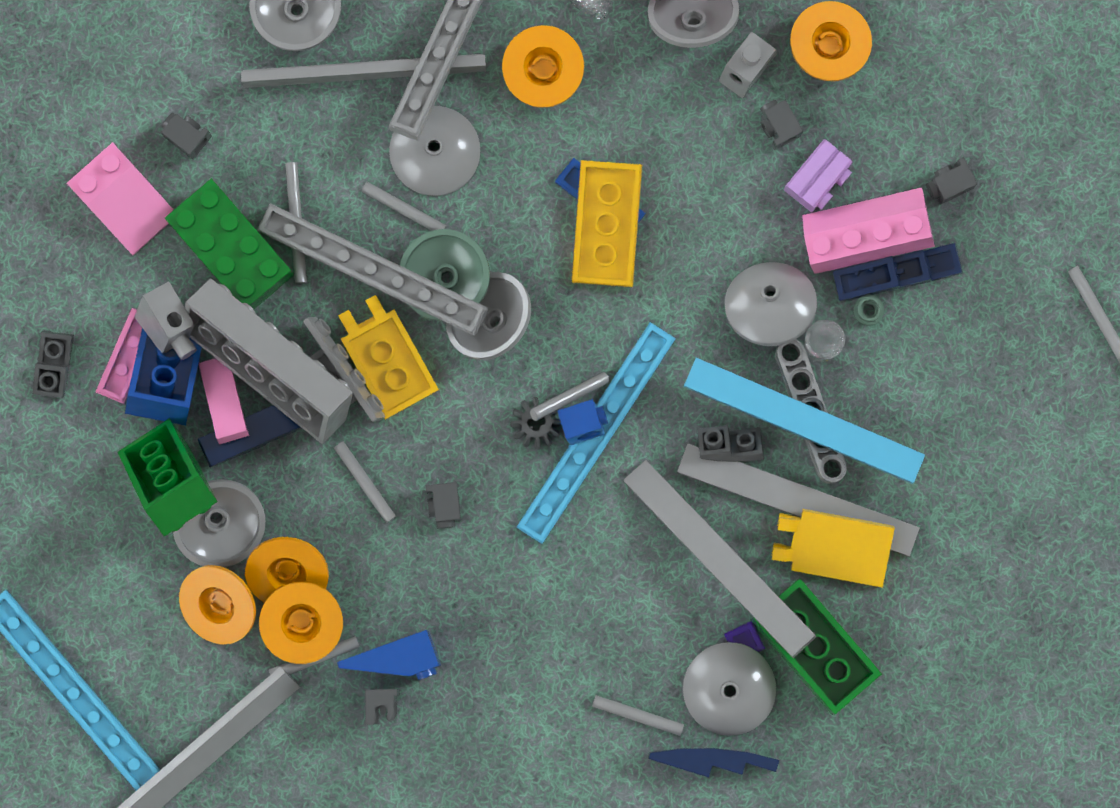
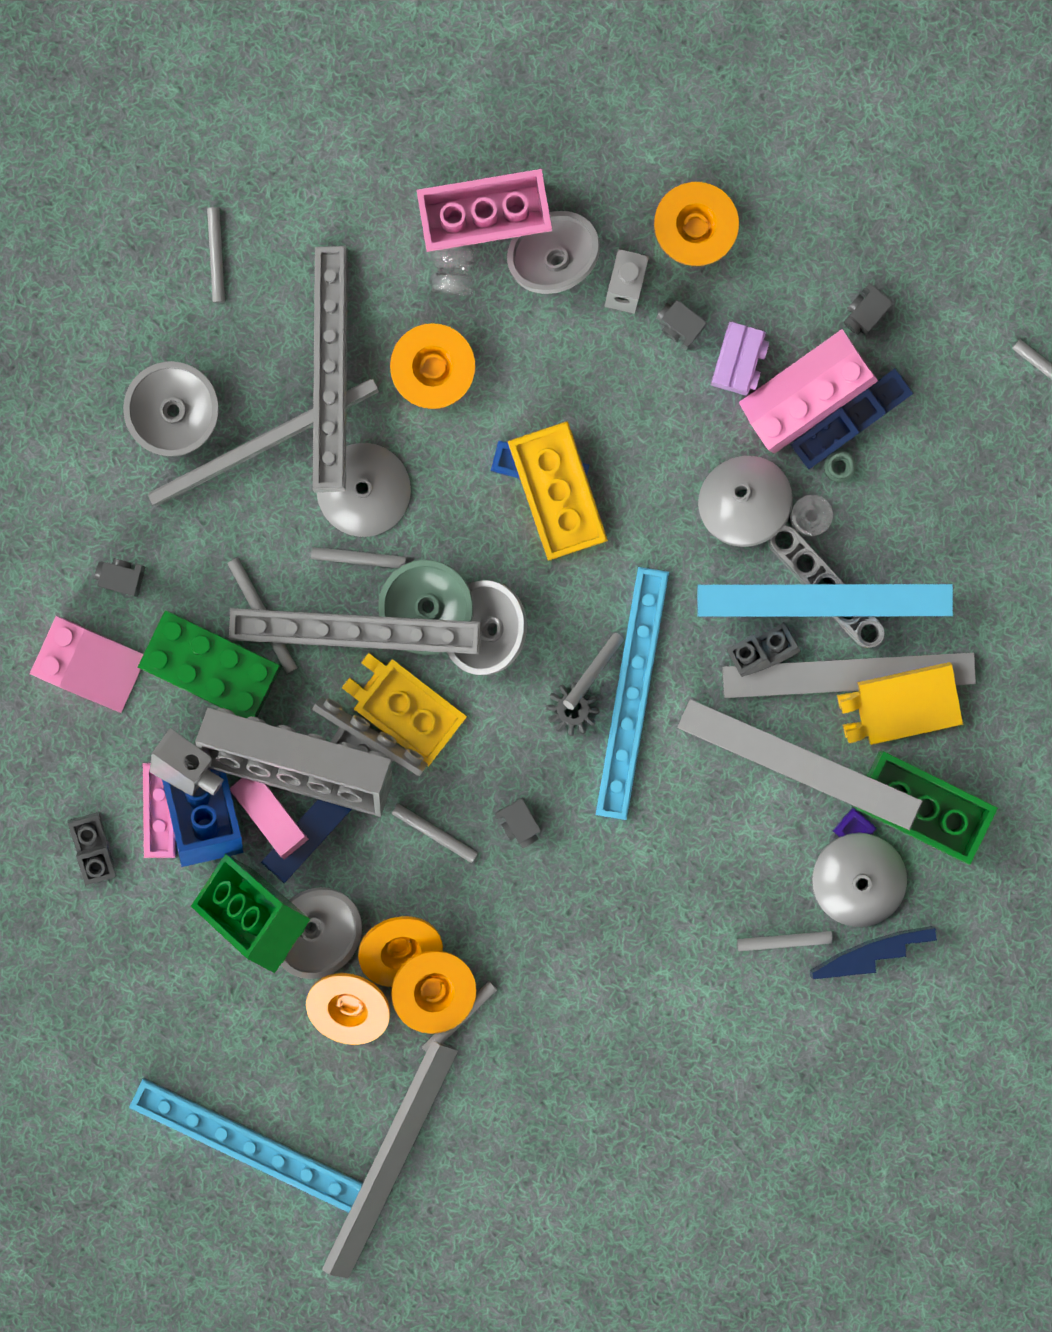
camera: 25 degrees left, 5 degrees up
(380, 699) = (541, 1030): dark grey hinge -> none
(402, 657) = (543, 985): blue slope -> none
(582, 421) = (616, 690): blue brick -> none

